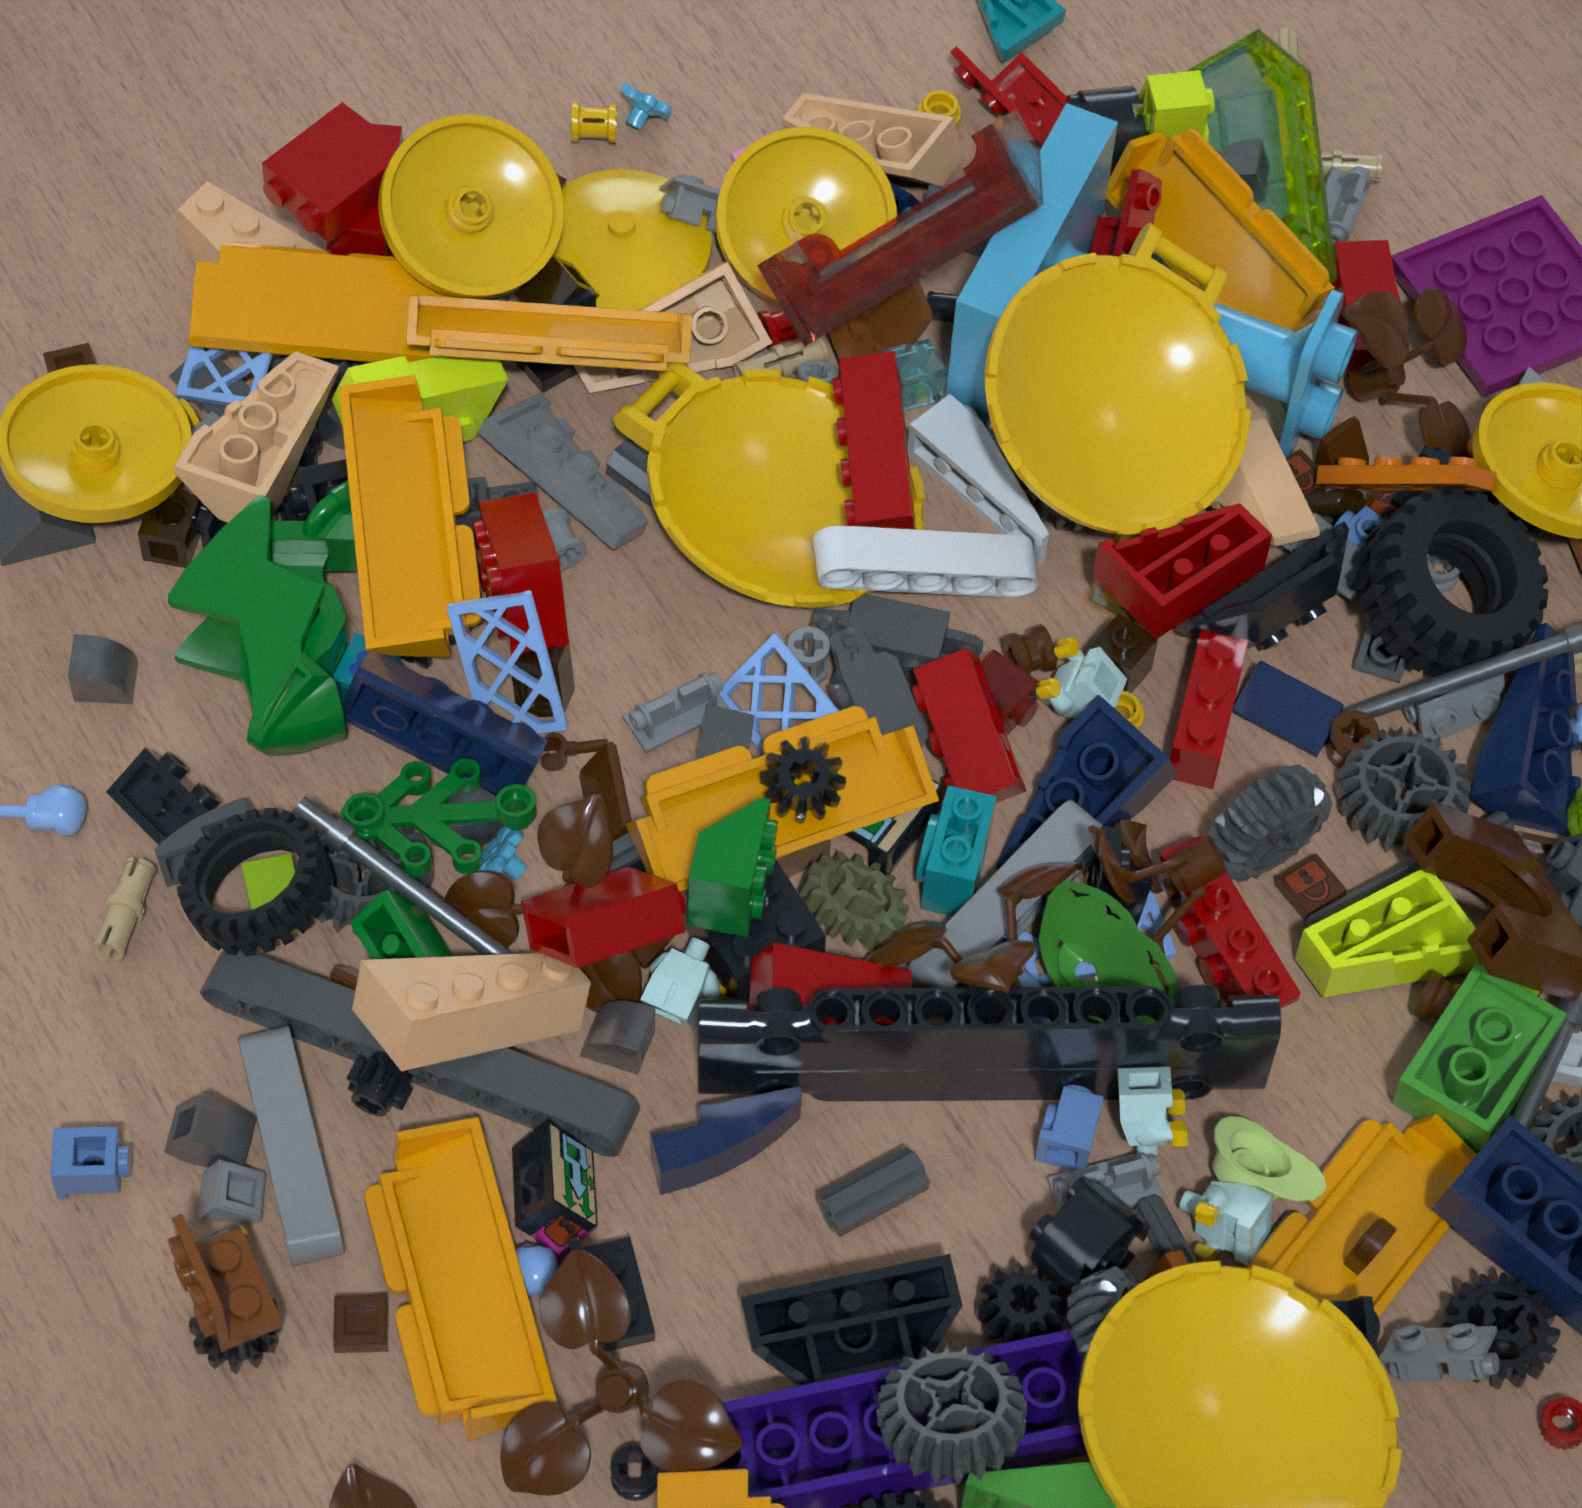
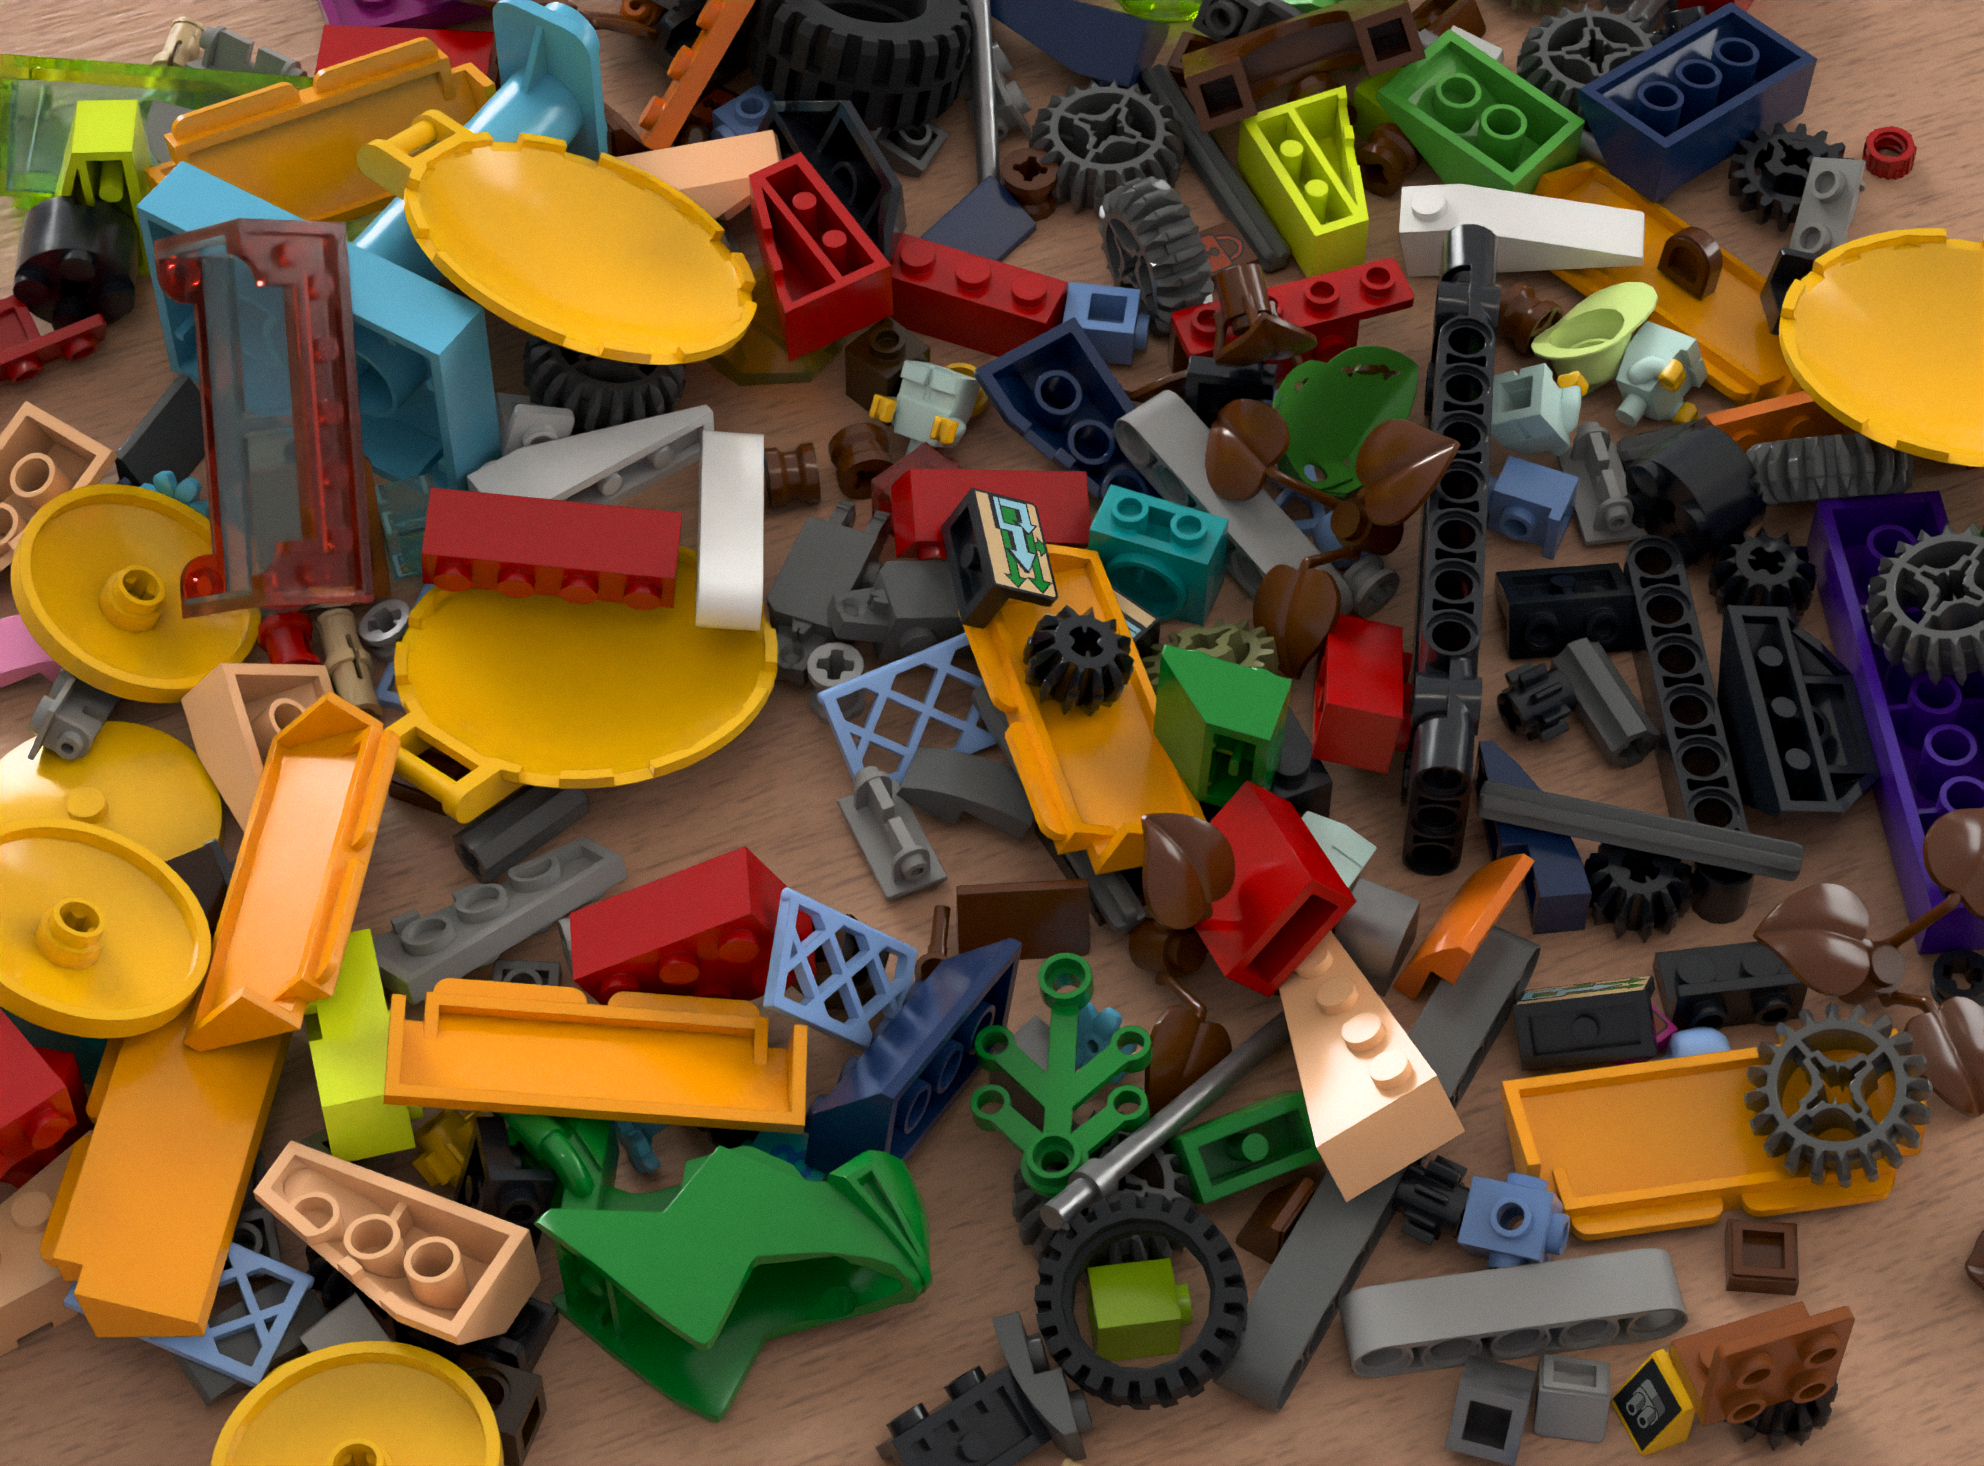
camera: 80 degrees left, 5 degrees down
(357, 1132) = (1497, 1206): none -> medium blue brick
(471, 1345) = (1860, 1074): none -> dark grey gear
(618, 1085) = (1464, 924): none -> orange slope
(672, 1210) = (1637, 890): none -> black gear
(715, 1200) = (1640, 830): none -> dark grey axle
(860, 1137) = (1536, 702): none -> black gear
(874, 1233) = (1685, 711): none -> black beam
(895, 720) = (996, 555): none -> panel
(970, 1159) = (1563, 605): none -> black bracket
(1006, 607) = (792, 475): none -> reddish brown wheel
(1200, 796) = (1109, 319): none -> medium blue brick
(1282, 1113) = (1525, 316): none -> reddish brown wheel
(1366, 1097) = (1529, 229): none -> white slope

